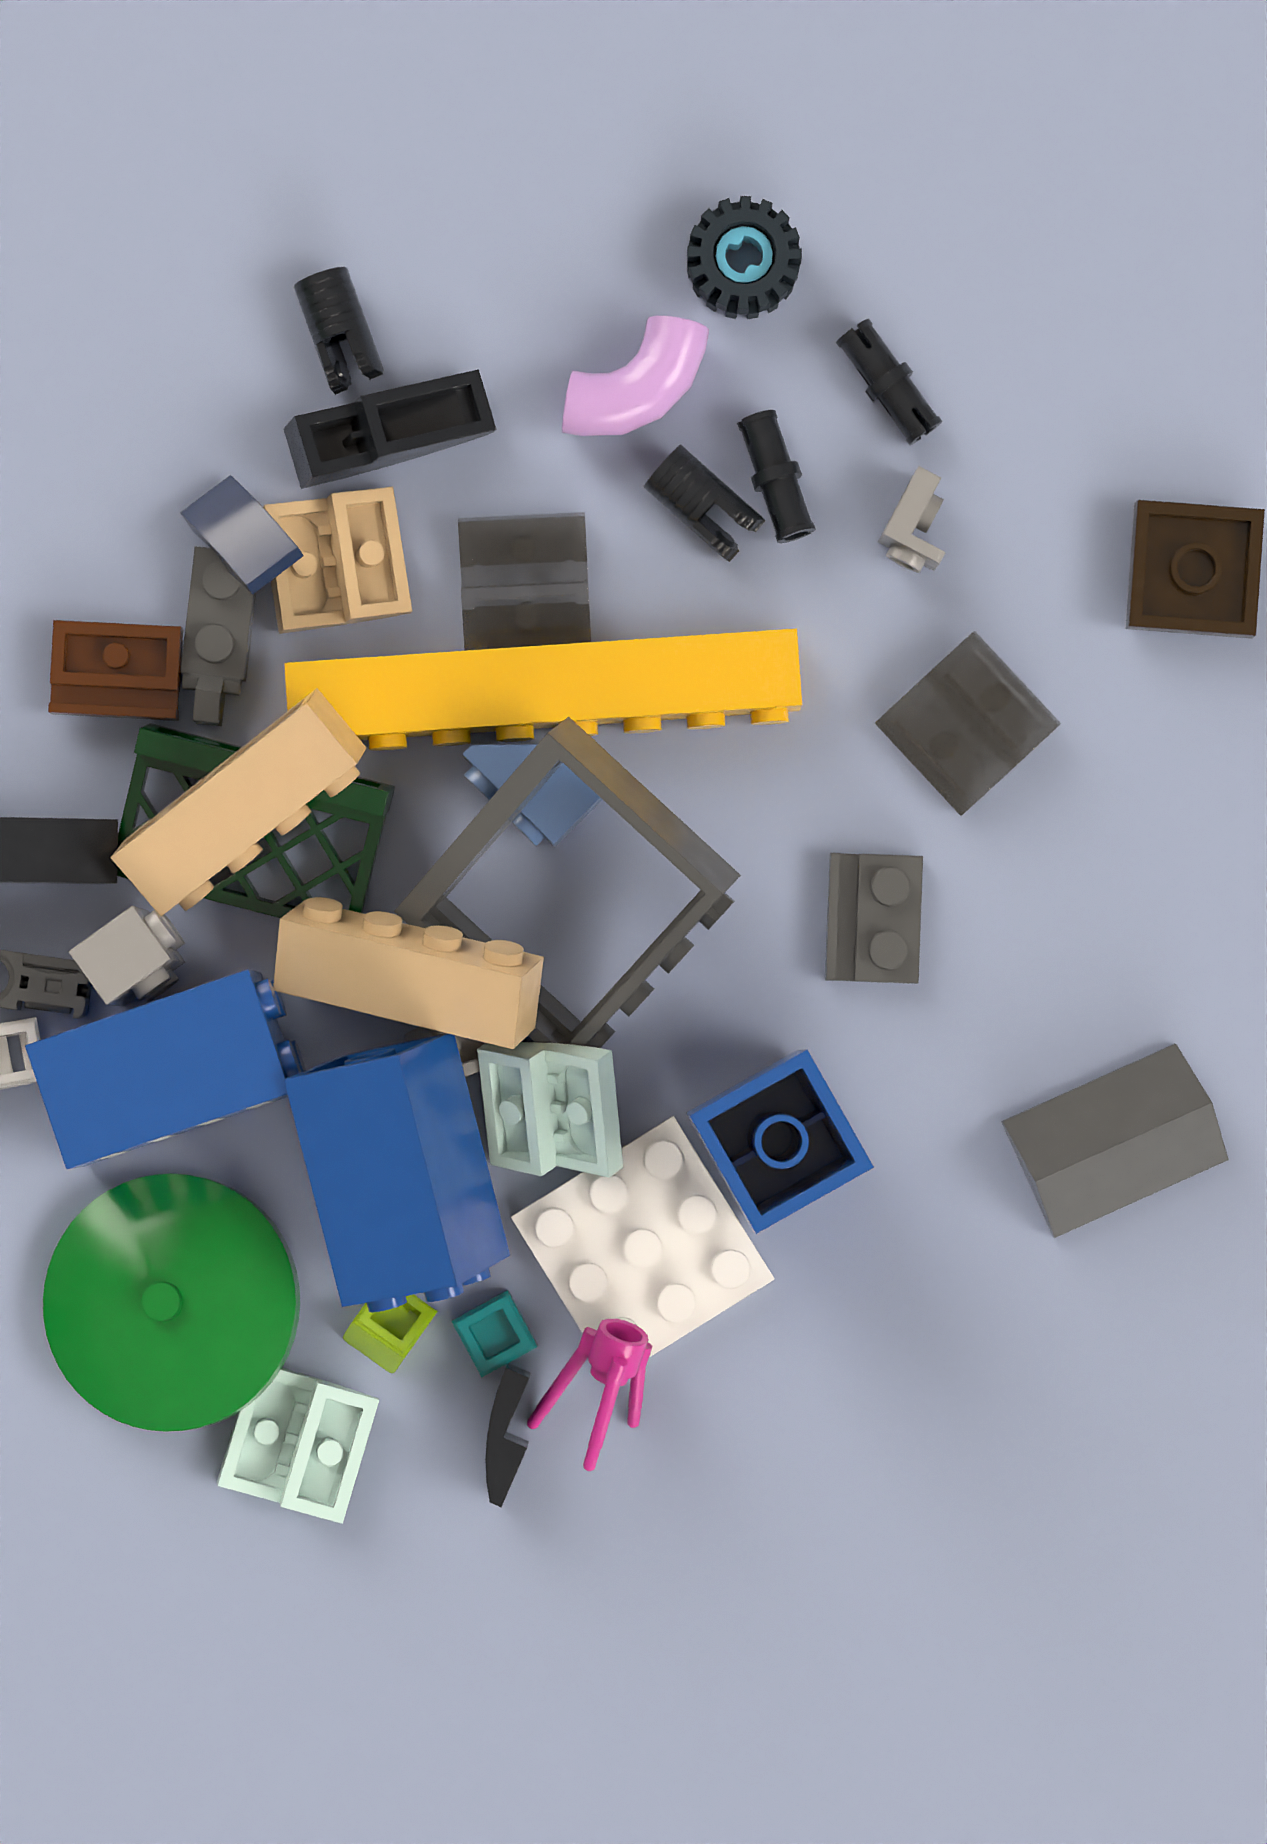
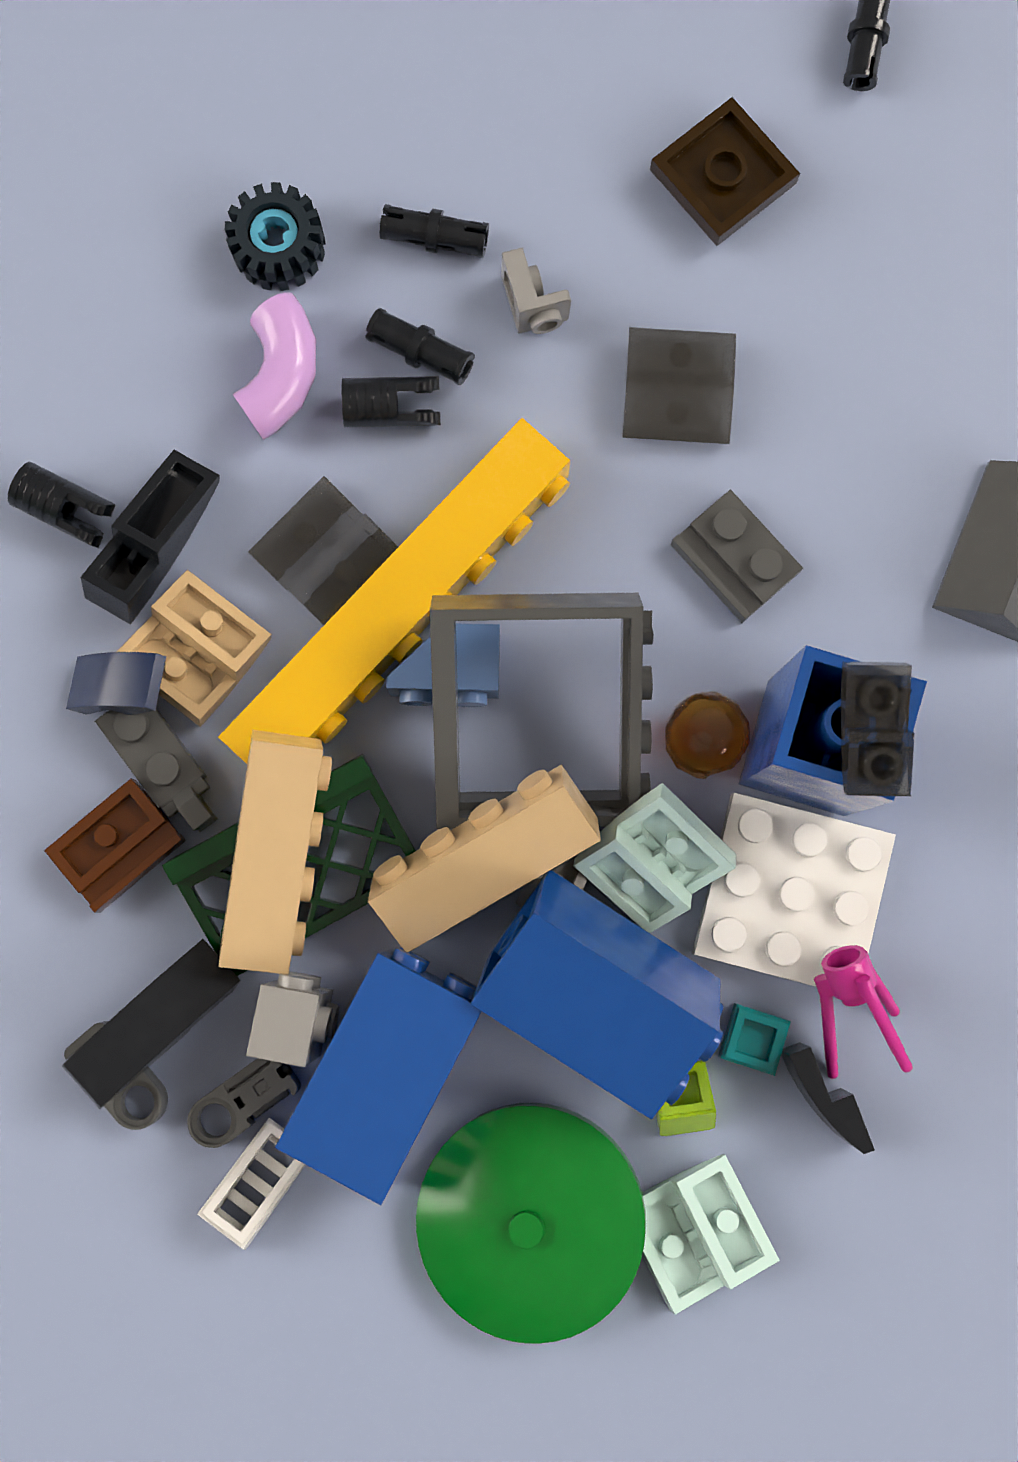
camera: 40 degrees left, 5 degrees down
(694, 1045) = (706, 734): none -> clear orange hair
(794, 1165) = (875, 729): none -> clear smoke slope

